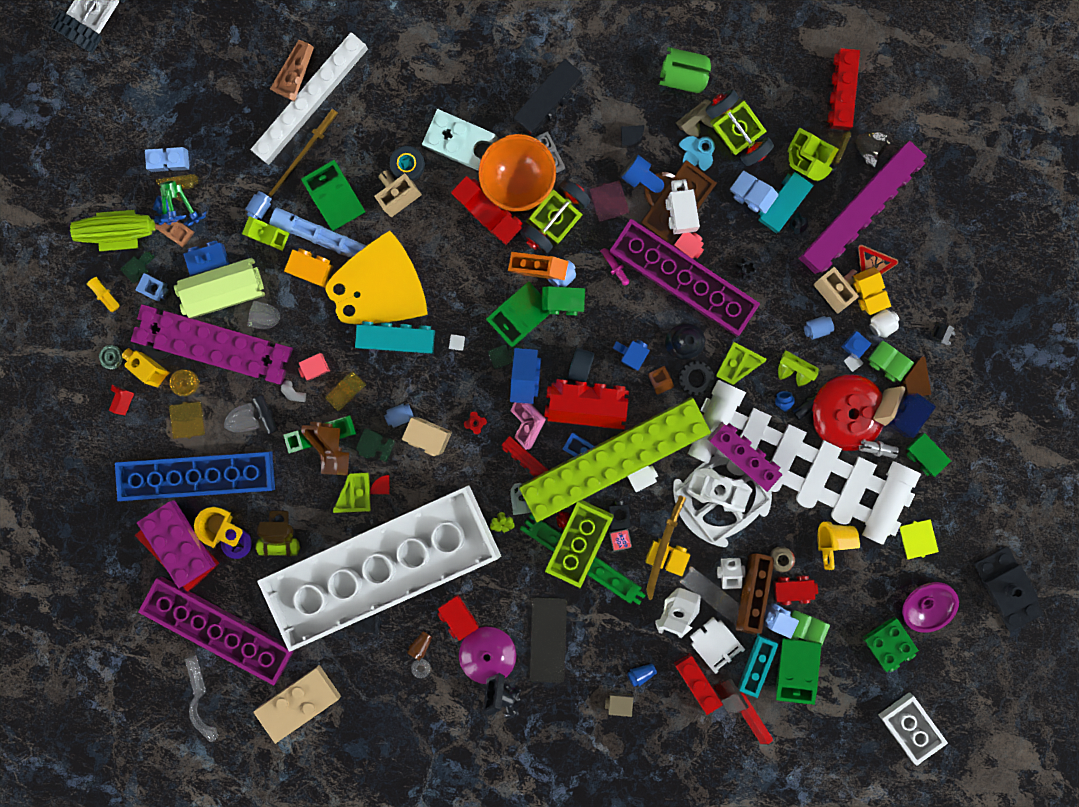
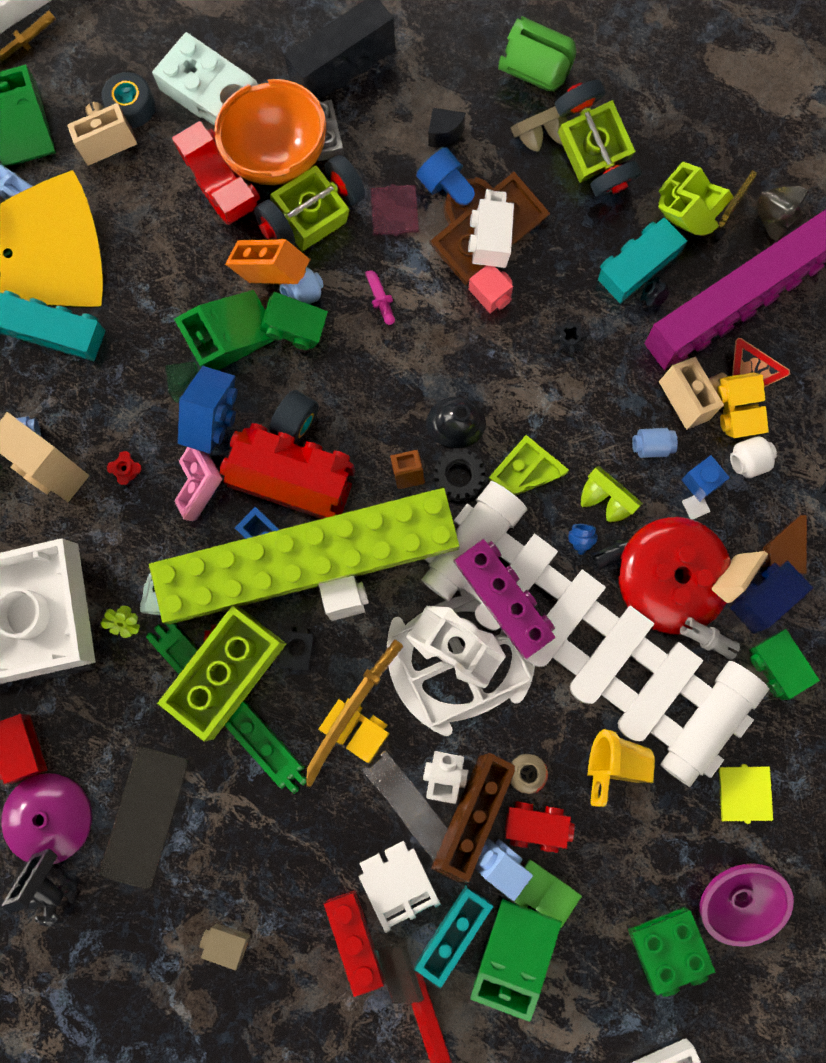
camera: 20 degrees right, 10 degrees down
(456, 342) = (131, 353): white sticker -> none
(523, 456) = (176, 526): red piece -> none
(620, 540) = (291, 688): tile -> none
(633, 355) = (374, 417): blue brick -> none
(641, 674) = (271, 905): blue cone -> none
(681, 601) = (363, 806): white piece -> none
(684, 278) = (474, 328): magenta brick -> none
(695, 153) = (529, 169): medium azure plate -> none
(756, 194) = (600, 233): light blue piece -> none
(844, 89) = (757, 126): red brick -> none
(890, 361) = (752, 514): bright green brick -> none

